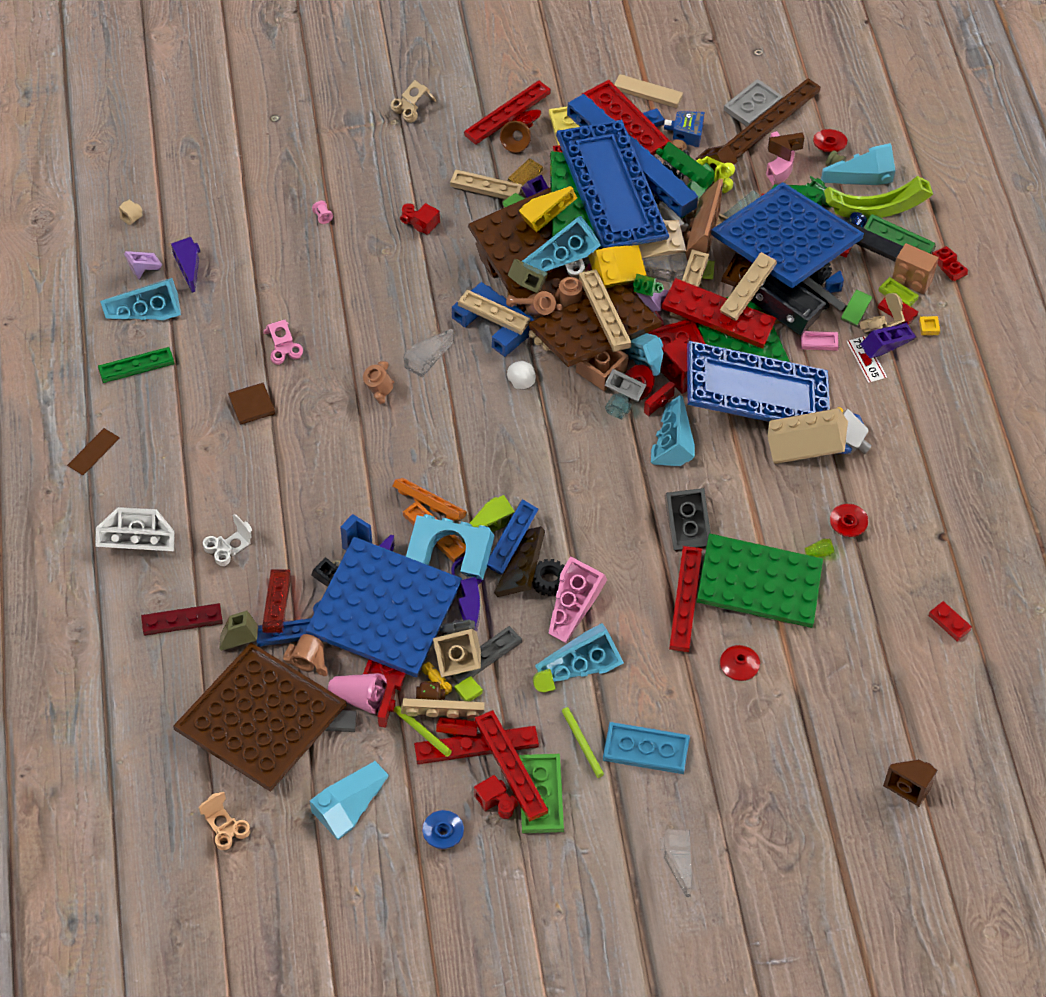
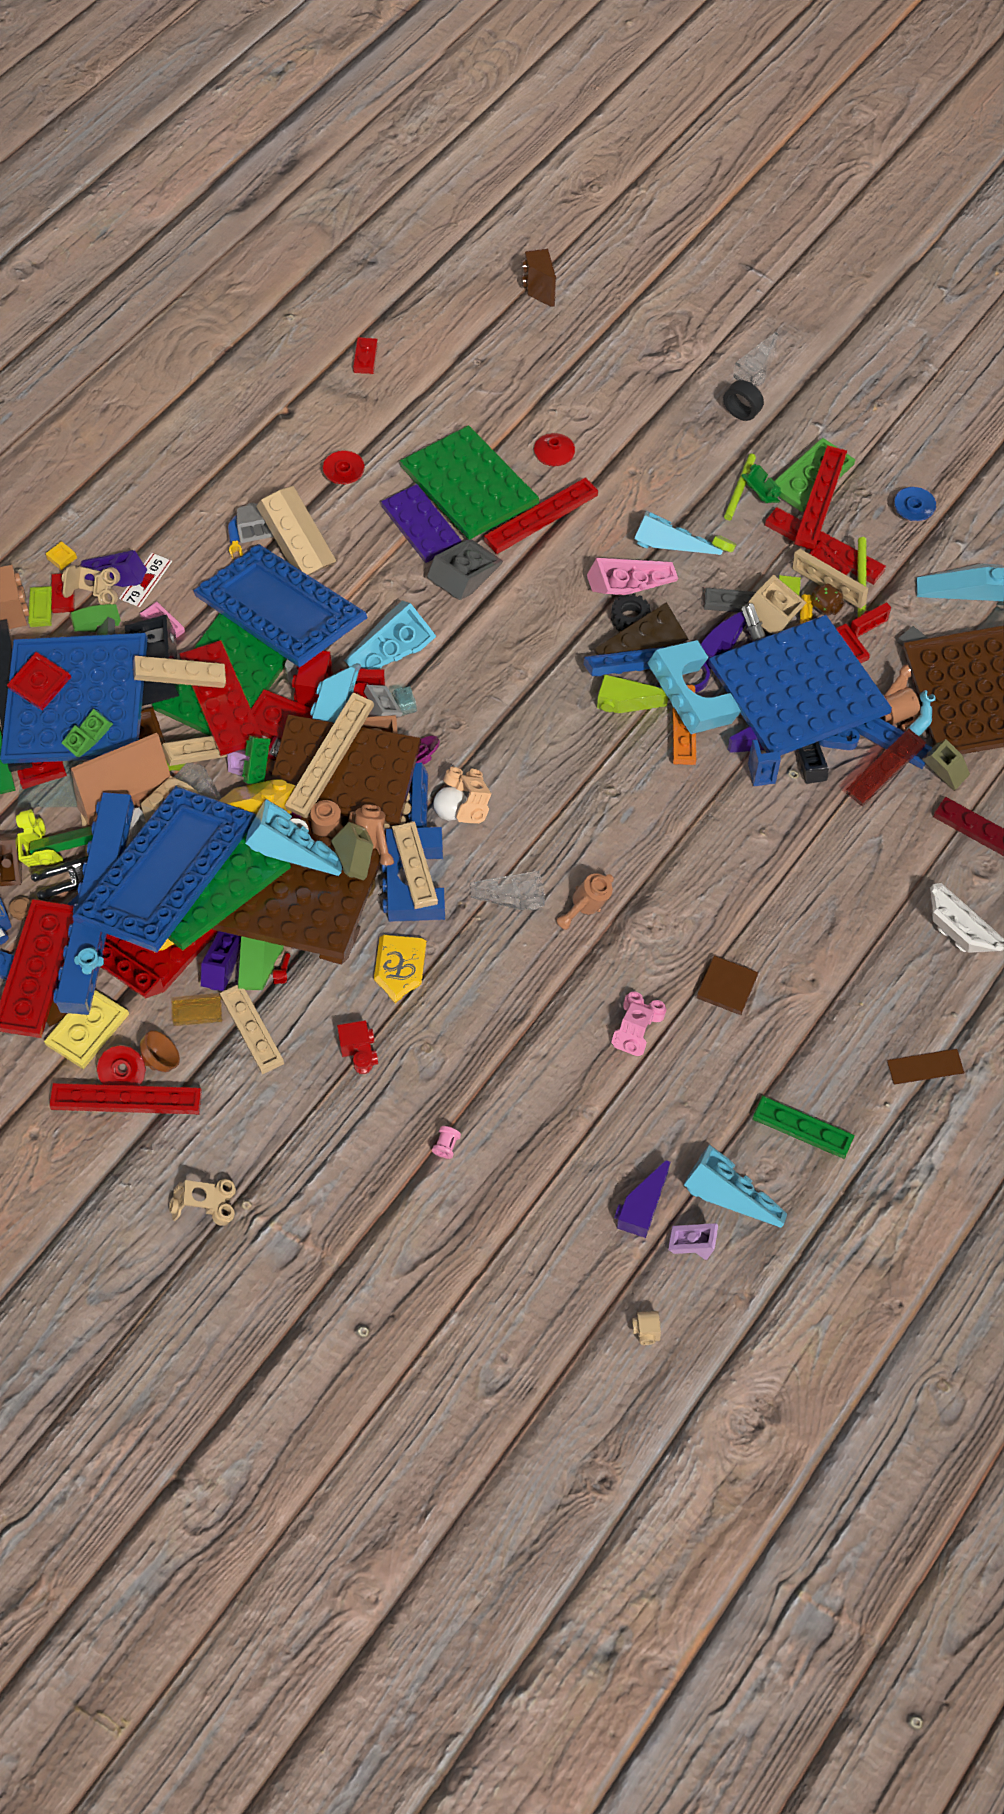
camera: 135 degrees left, 5 degrees up
(222, 547) = (884, 861): white piece -> none
(280, 654) = (925, 717): none -> medium azure arm
(361, 691) = (884, 641): bright pink cone -> none
(435, 502) = (660, 754): orange plate -> none
(447, 275) = (399, 965): none -> yellow tile
(492, 793) = (852, 497): red brick -> none
(520, 384) = (475, 807): none -> light nougat piece
(540, 359) = (419, 796): none -> blue plate
(546, 207) = (266, 886): yellow slope -> none
(568, 749) = (768, 490): none -> green hinge
(572, 383) = (427, 748): none -> magenta dish
(590, 116) = (87, 954): none -> medium azure plate
(646, 748) = (696, 448): dark azure tile -> none
(650, 803) = (750, 393): none -> black tyre
(685, 164) = (56, 856): green hinge -> none
(749, 216) = (88, 734): none -> bright green slope
(756, 528) = (420, 522): none -> dark purple plate
(815, 222) = (39, 681): none -> red tile
(821, 548) = (391, 467): clear neon green cone -> none

